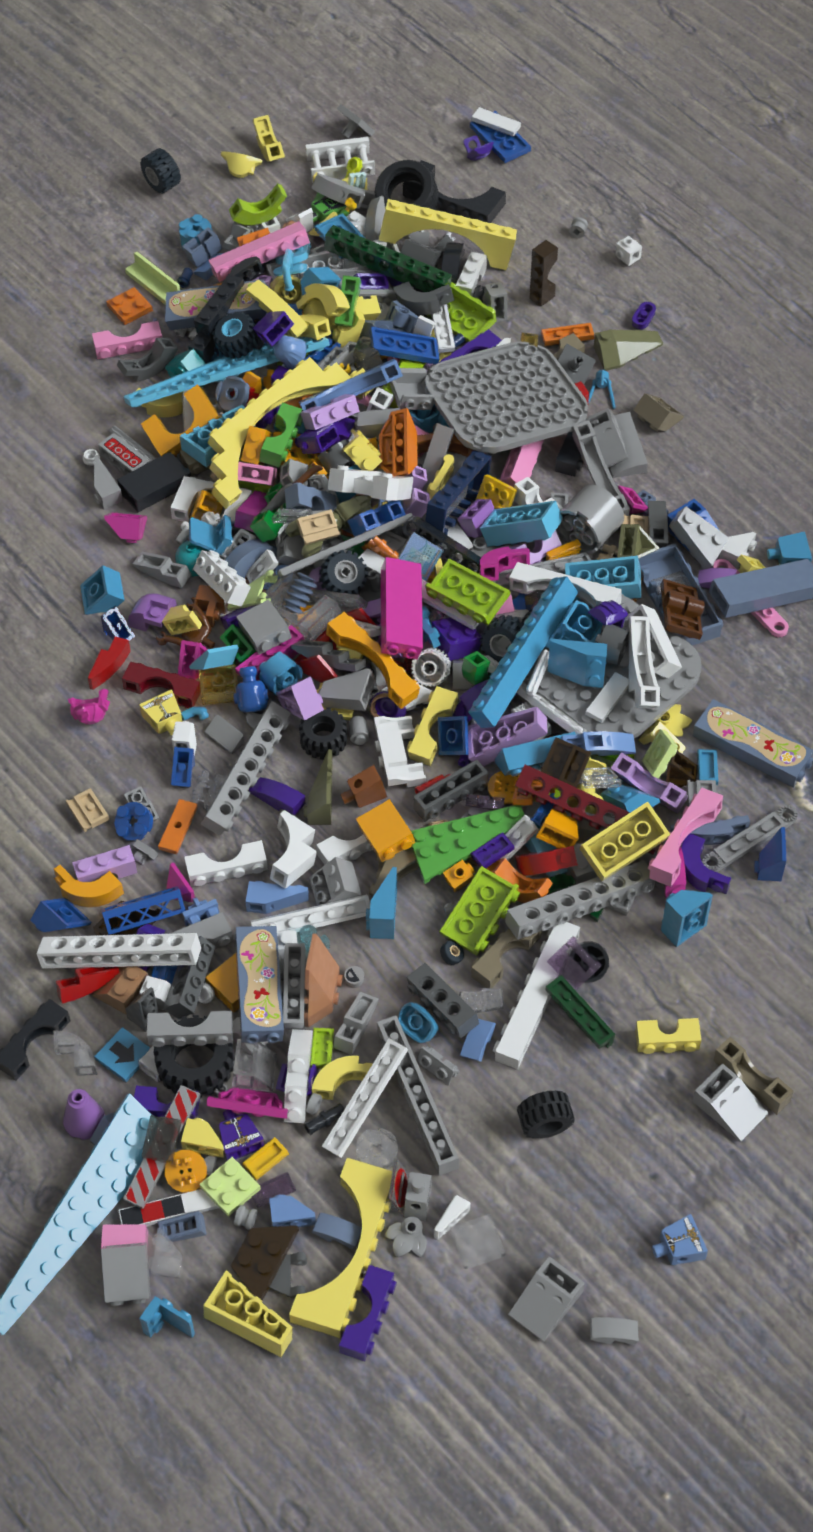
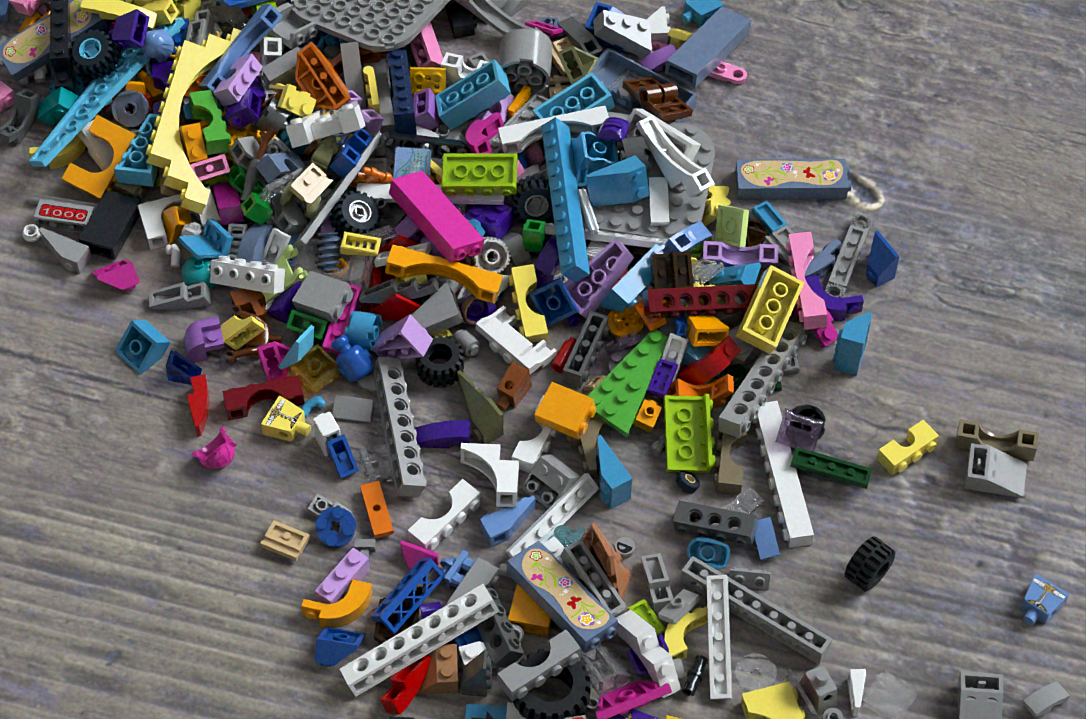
camera: 35 degrees left, 0 degrees up
(318, 589) = (354, 238): none -> light yellow slope
(351, 1051) = (679, 606): none -> light grey plate

